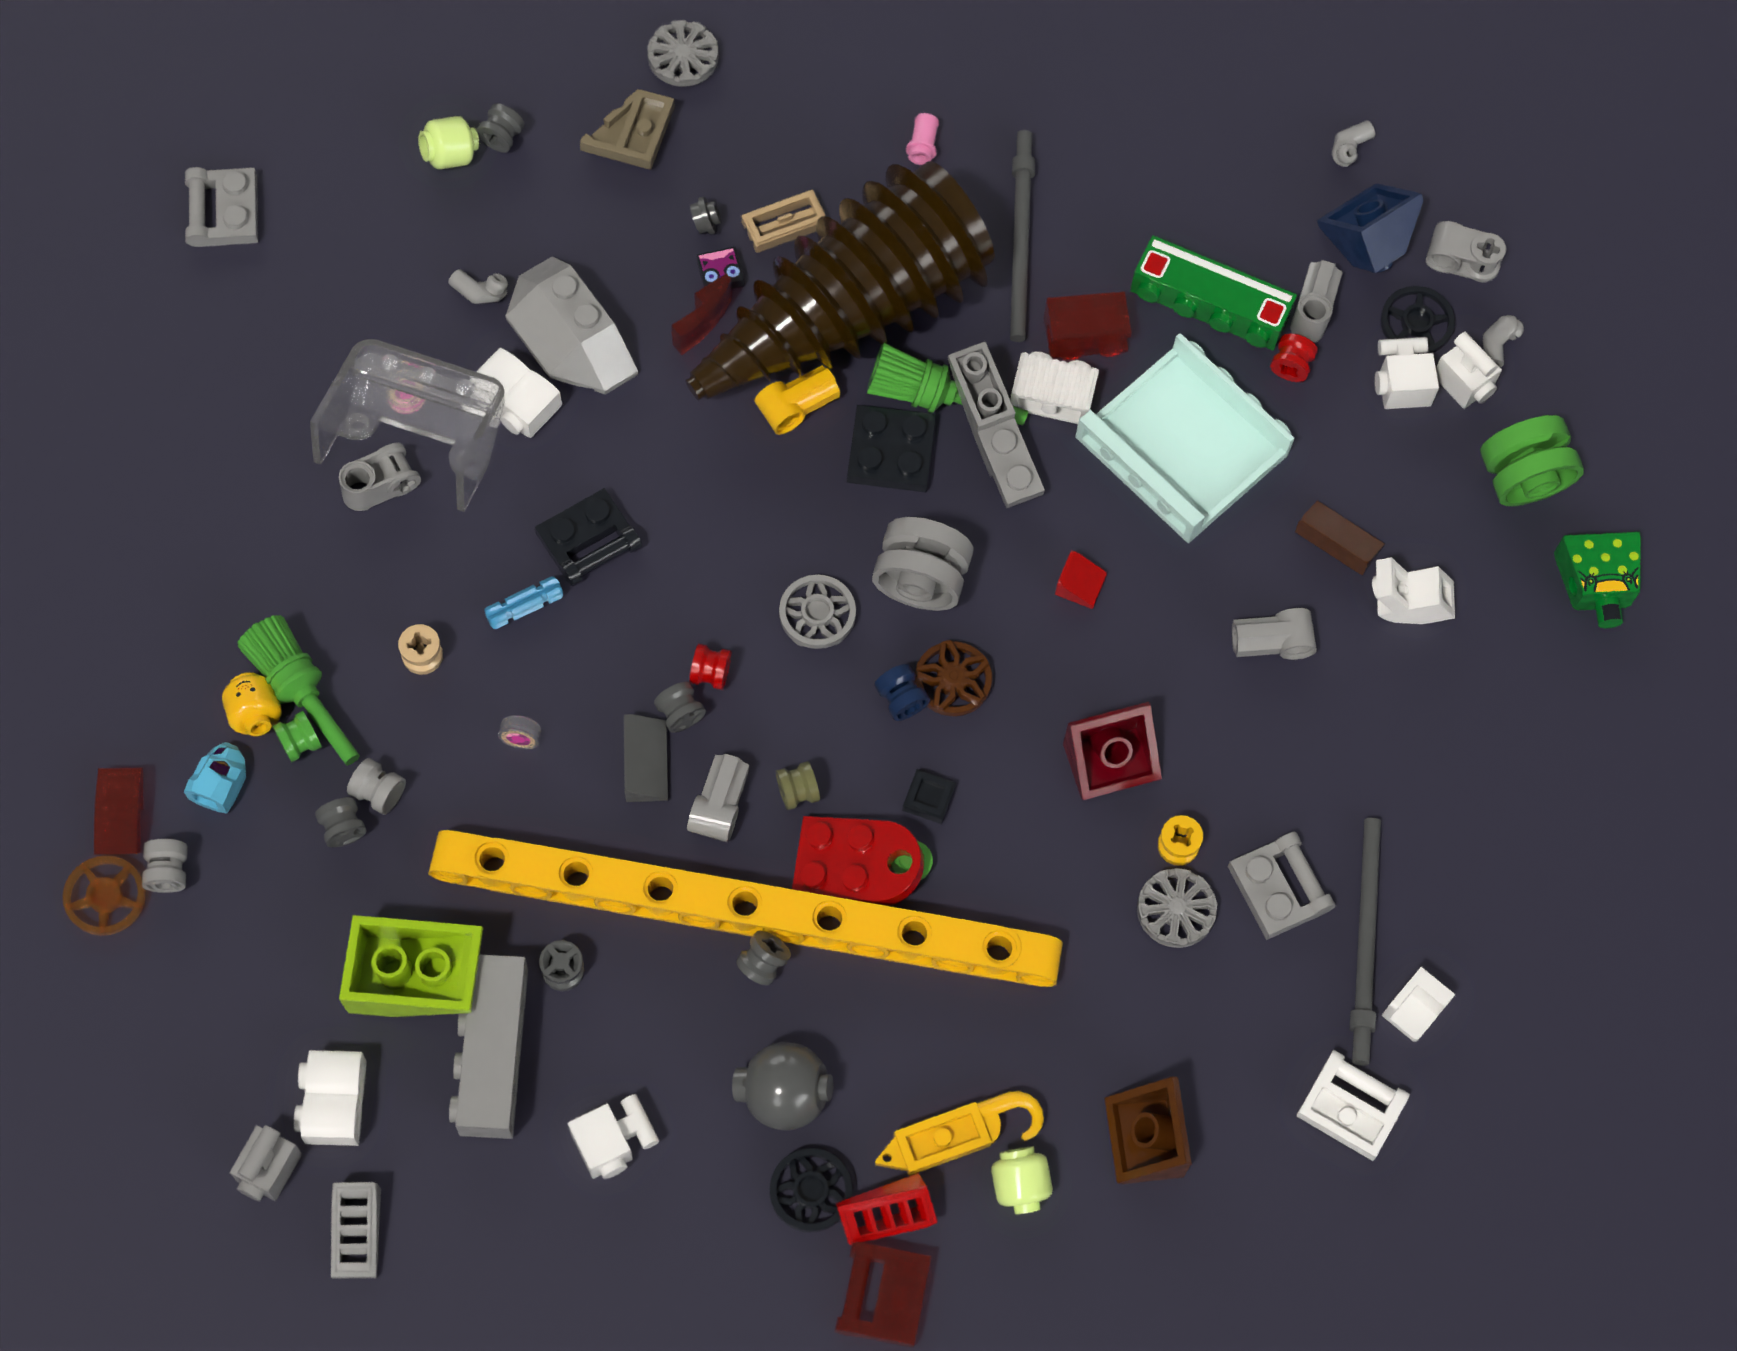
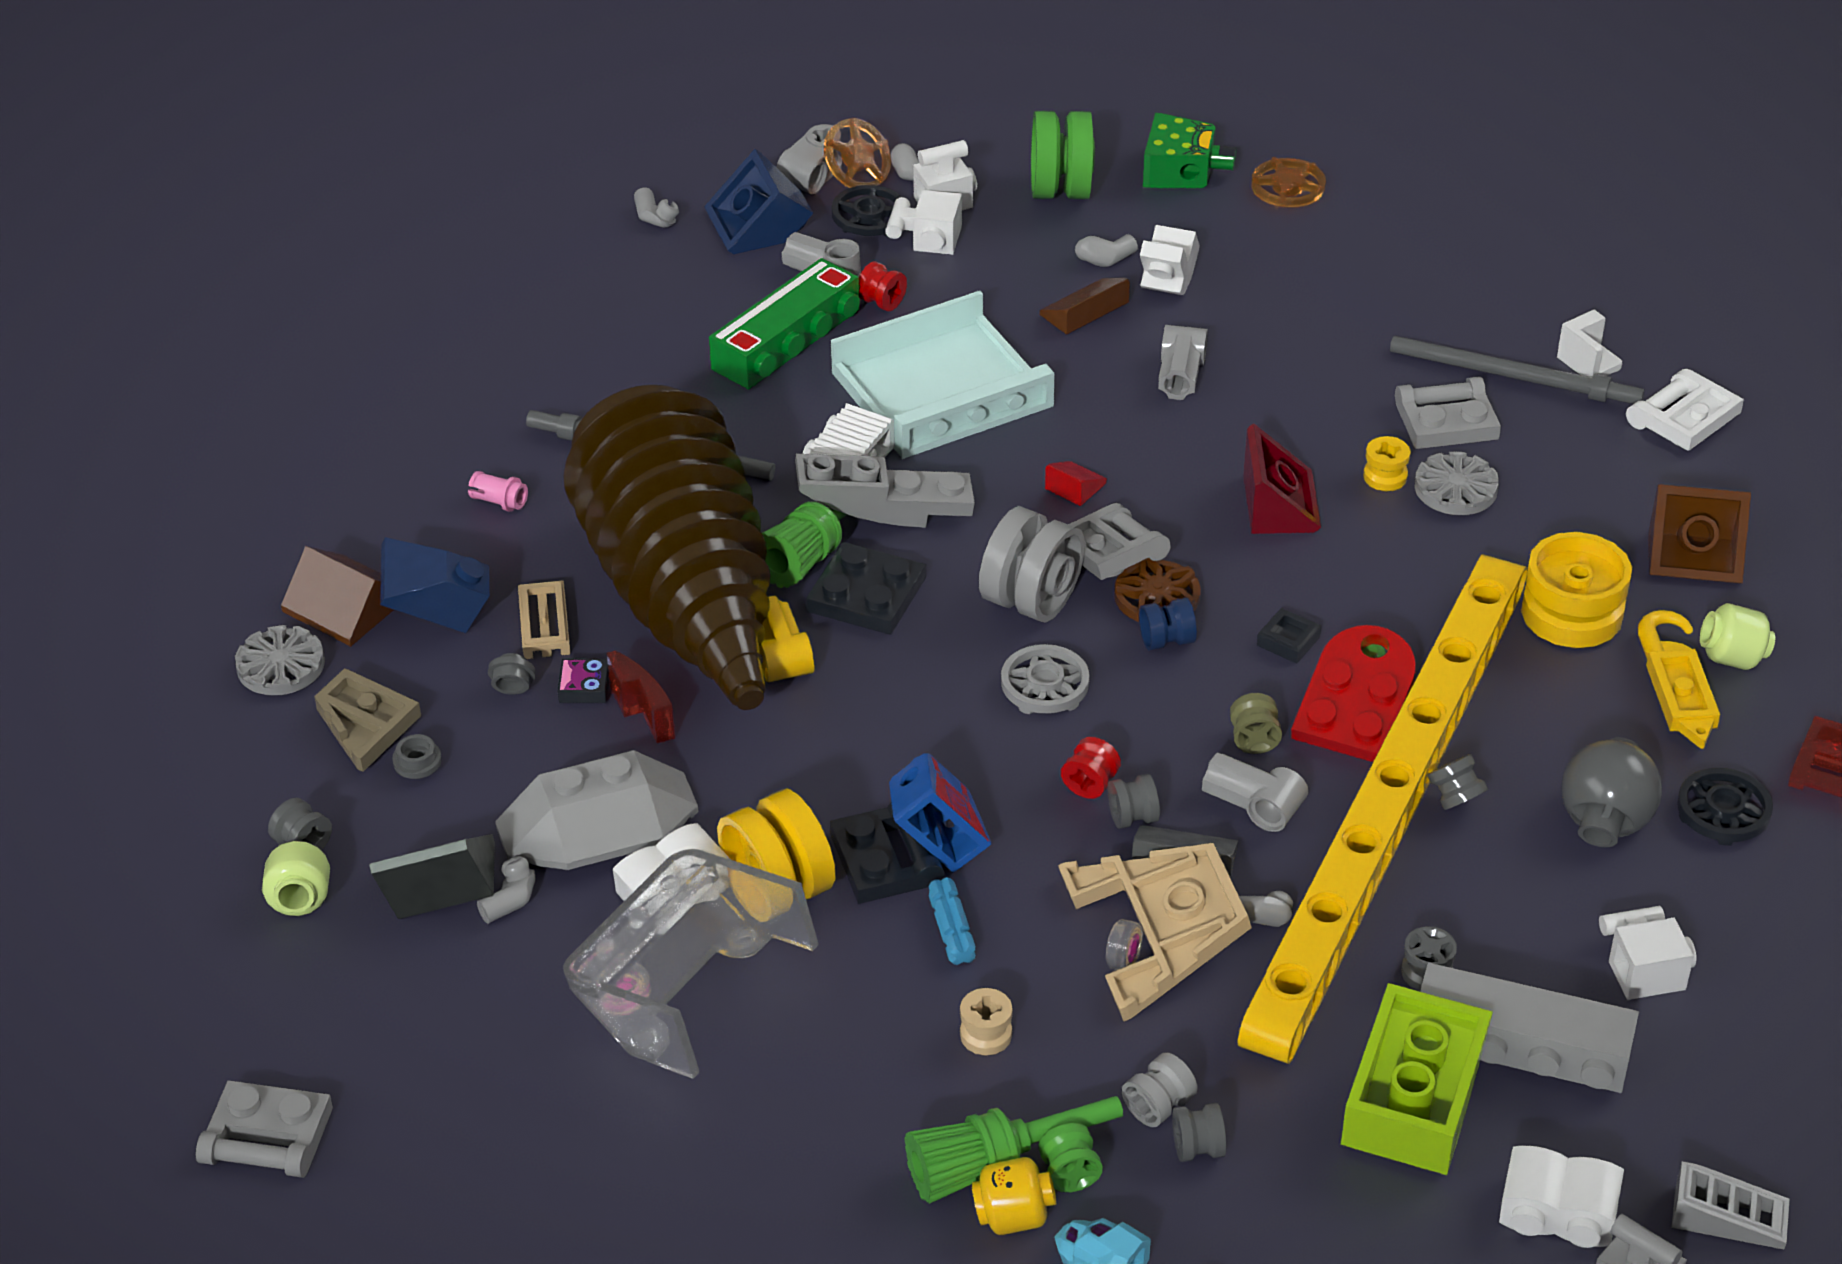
camera: 70 degrees left, 25 degrees down
(381, 476) = (738, 1027): light grey piece -> none
(476, 230) = (437, 876): none -> pearl dark grey slope
(532, 453) = (780, 840): none -> yellow wheel
(562, 765) = (1184, 910): none -> tan wing
(583, 823) = (1269, 910): none -> light grey arm
(601, 172) = (416, 757): none -> dark grey plate
(617, 557) = (923, 801): none -> blue torso
(771, 71) = (335, 595): none -> slope
(784, 122) = (432, 583): none -> dark blue slope
(896, 1192) = (1759, 736): red slope -> none
(985, 614) = (1110, 552): none -> light grey plate
(1029, 1051) = (1576, 589): none -> yellow wheel
(1087, 325) = (785, 412): clear red brick -> none
(1422, 539) = (1104, 252): none -> light grey arm
(1481, 286) = (857, 153): none -> clear orange wheel
(1605, 683) = (1288, 182): none -> clear orange wheel

